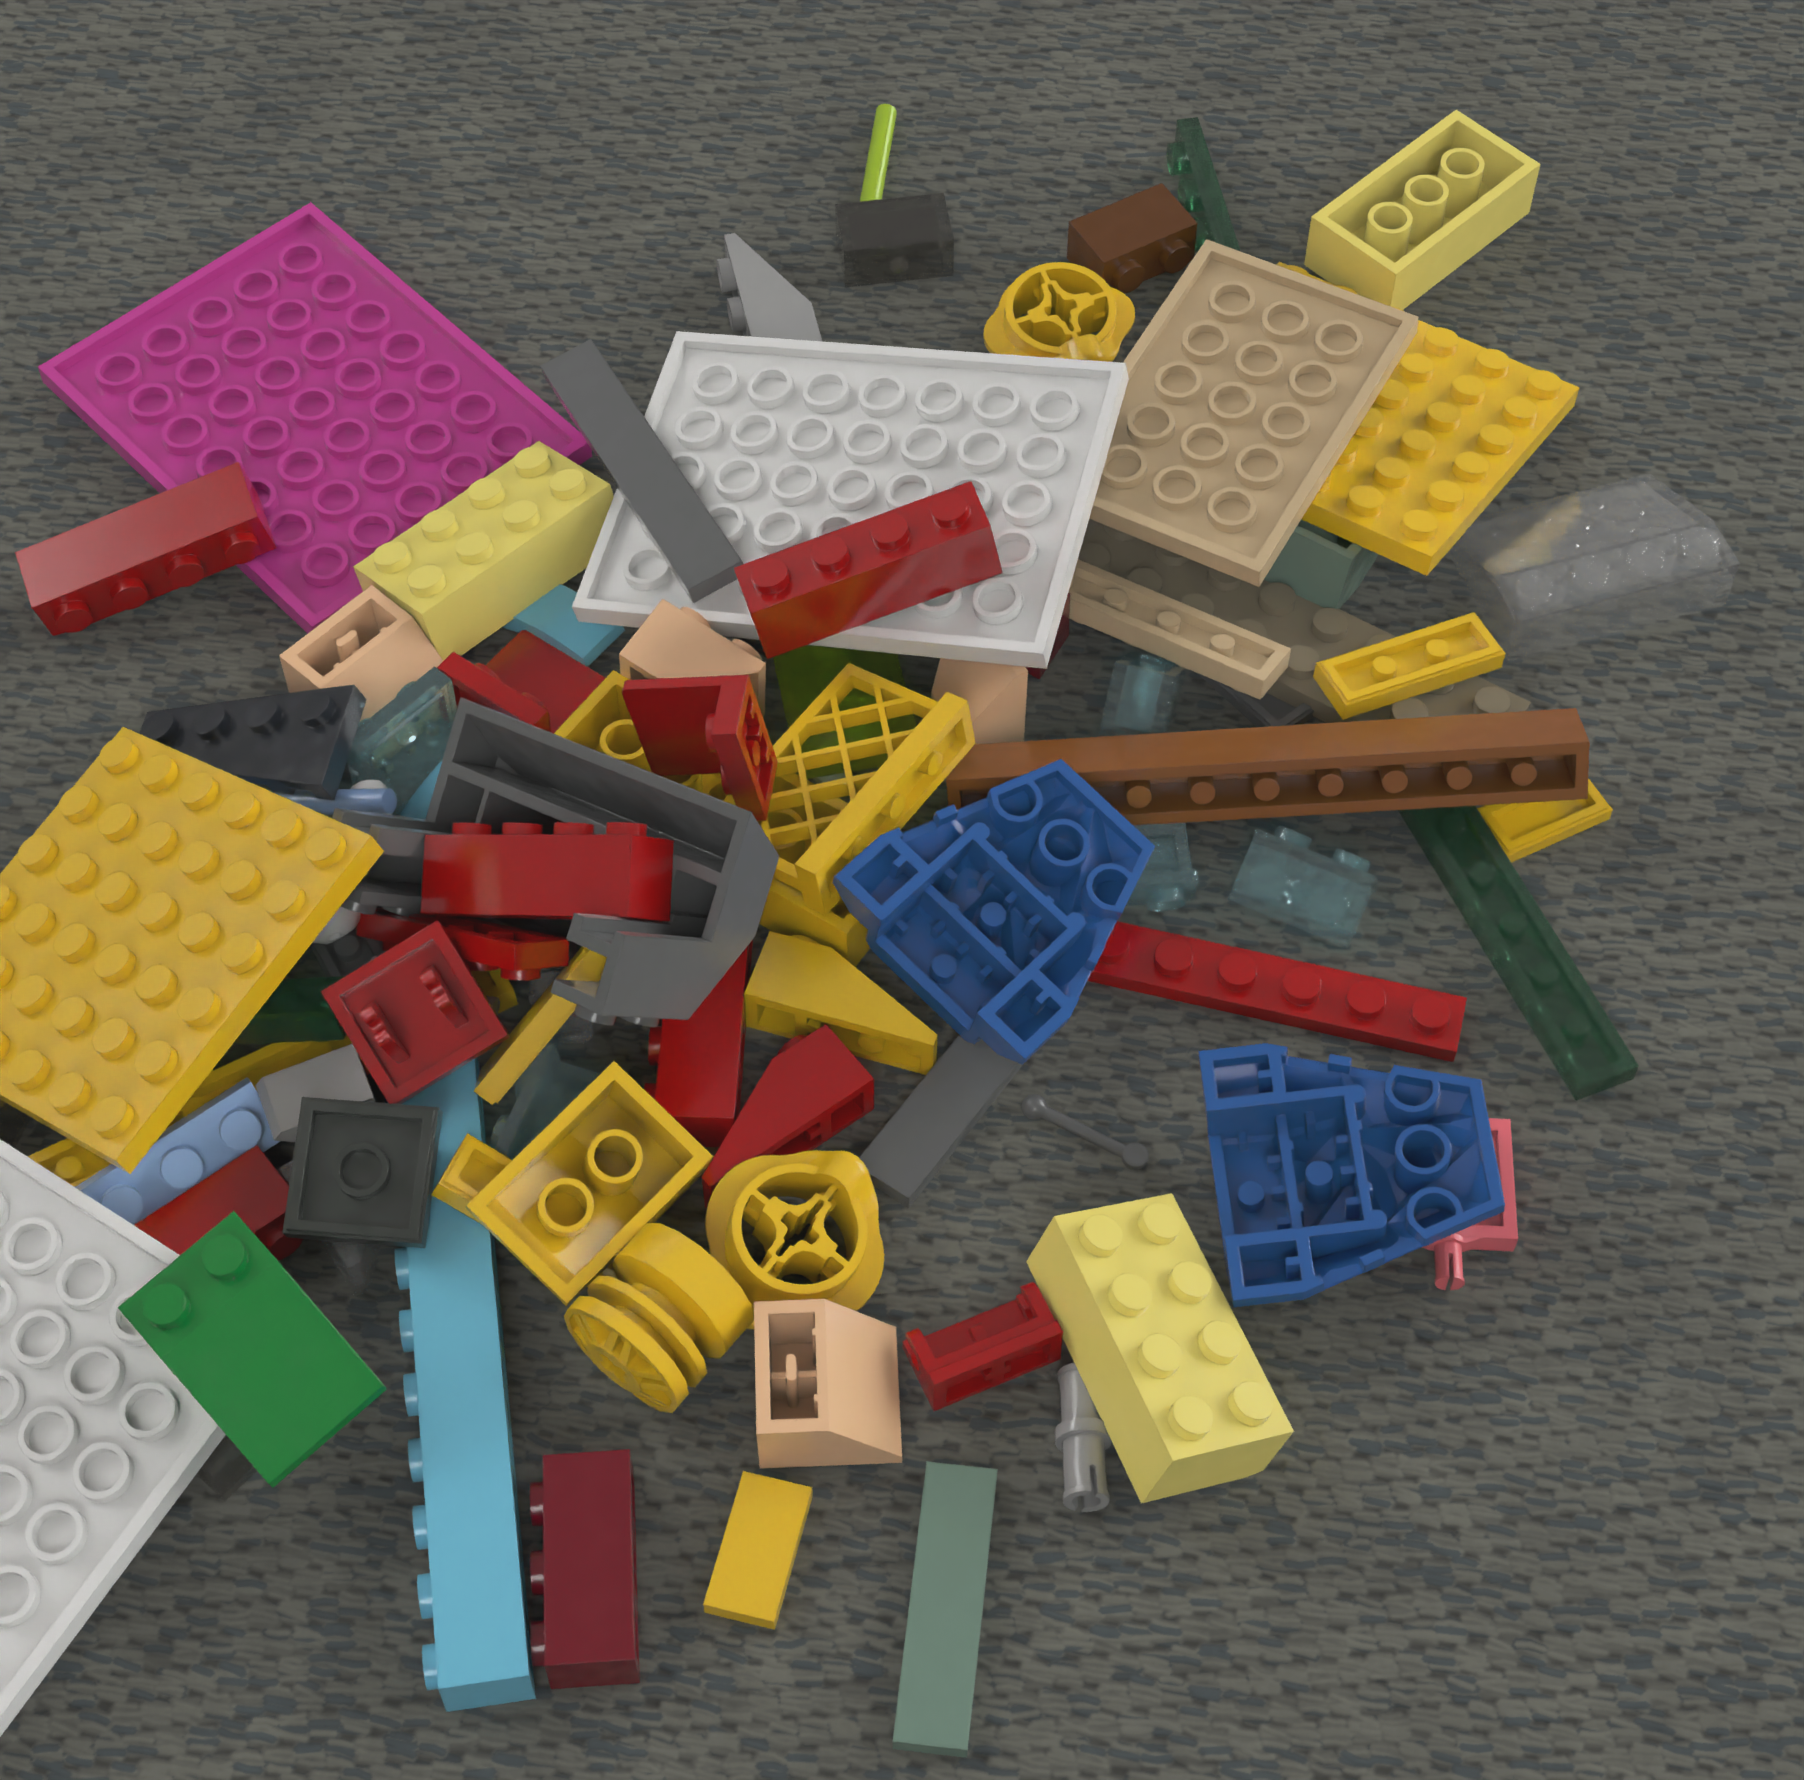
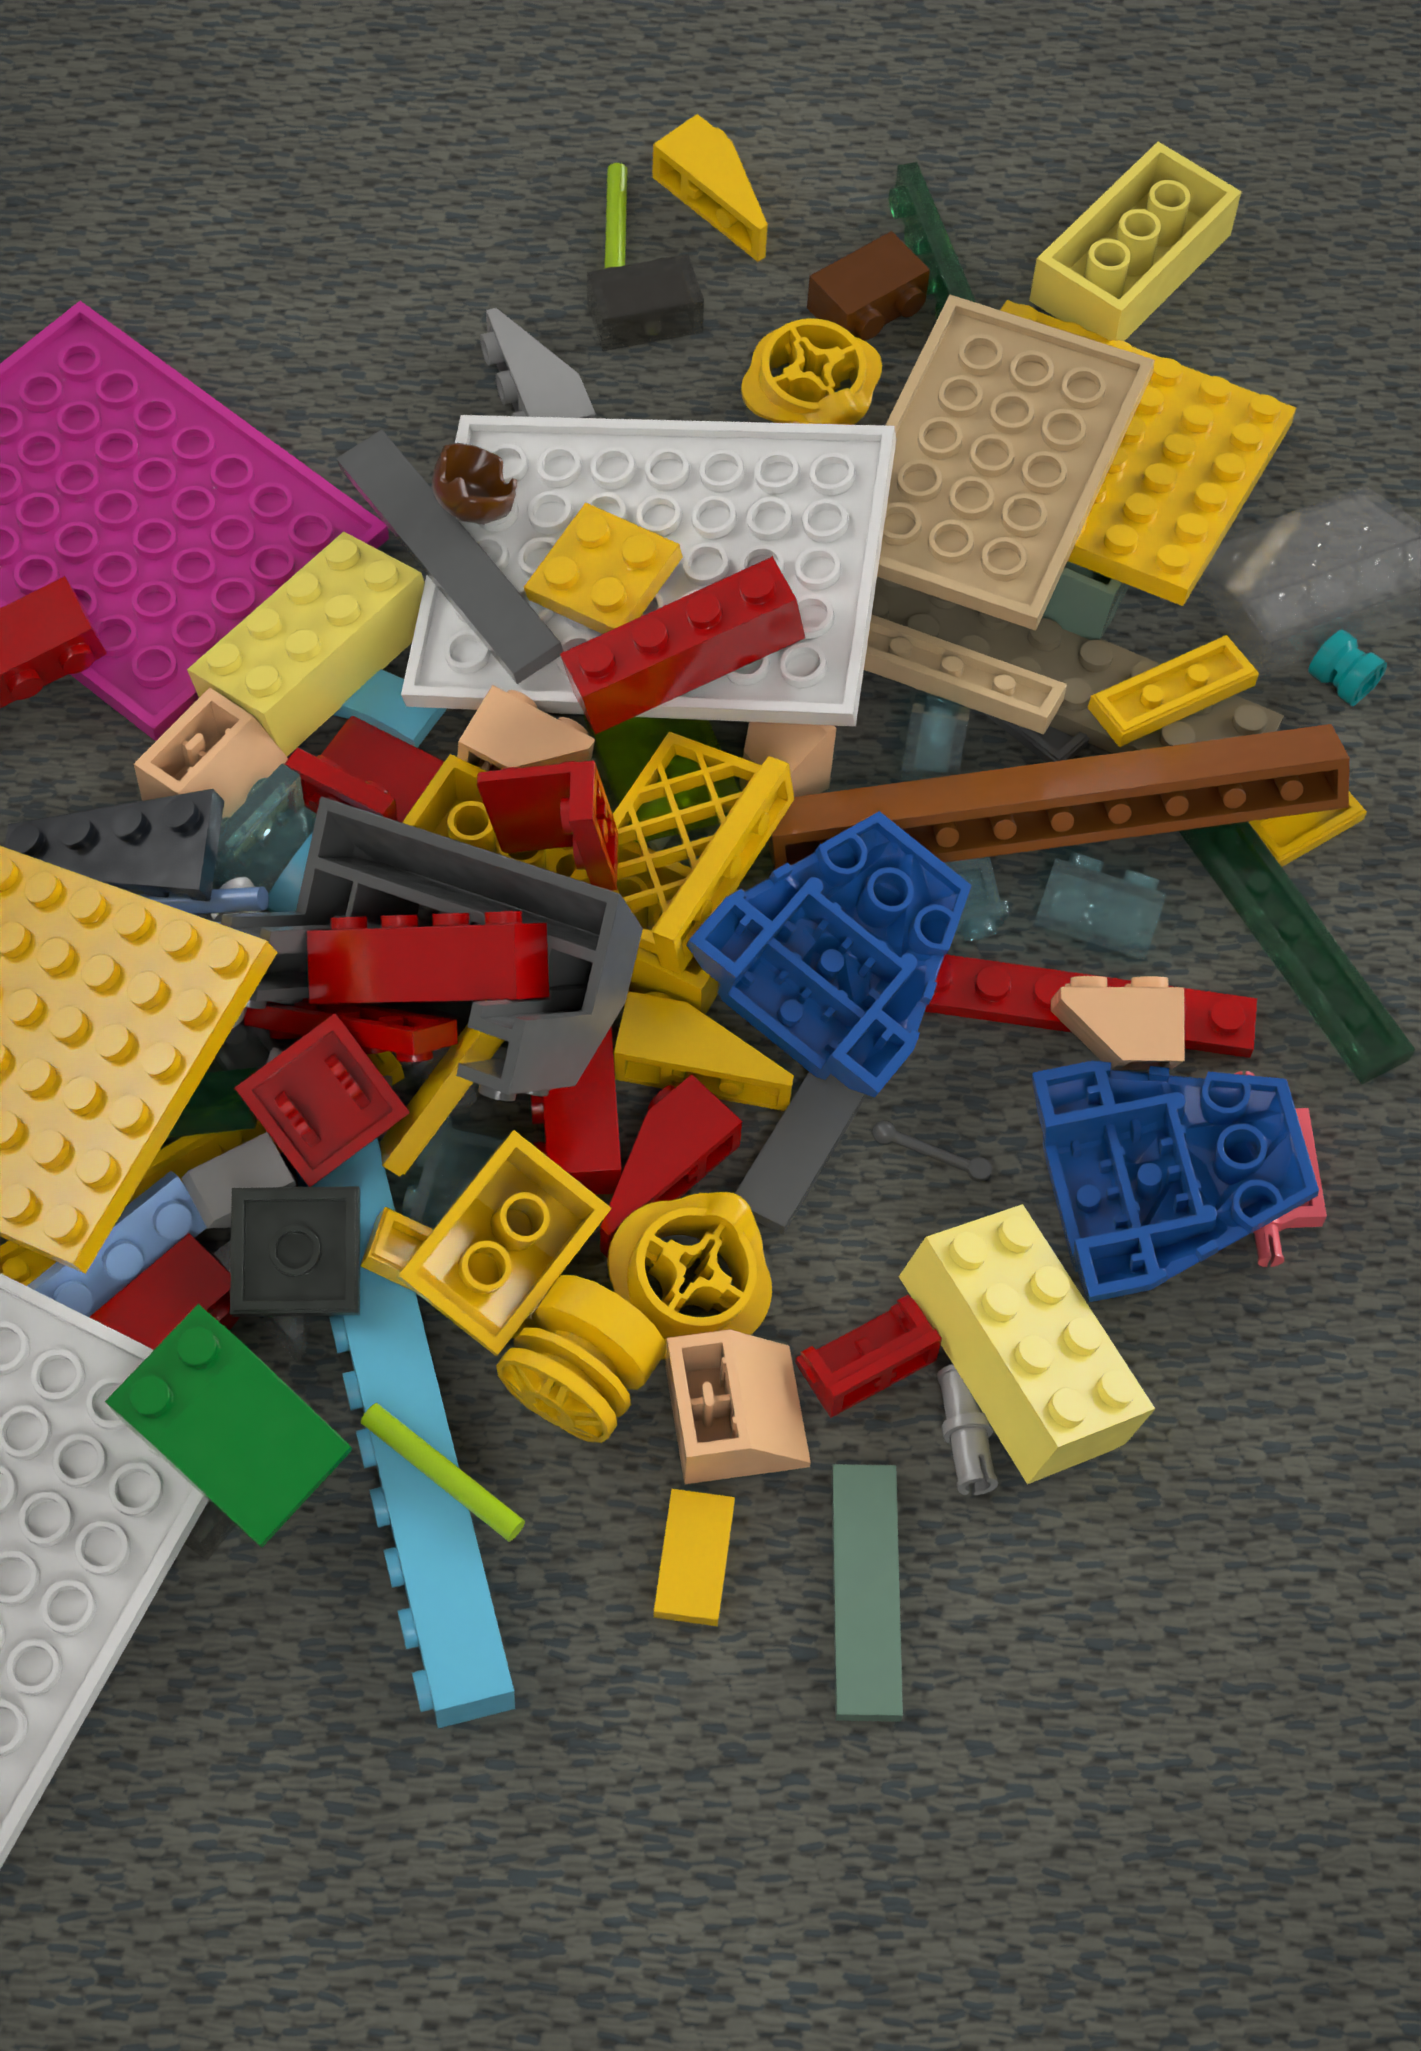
camera: 10 degrees left, 5 degrees up
(487, 1426) = (443, 1472): none -> lime bar
(586, 1570) = (549, 1594): dark red brick -> none
(673, 396) = (471, 484): none -> reddish brown hair
(798, 490) = (603, 570): none -> yellow plate
(976, 119) = (707, 175): none -> yellow slope
(1308, 1005) = (1126, 1024): none -> light nougat slope
(1606, 656) = (1347, 667): none -> teal wheel

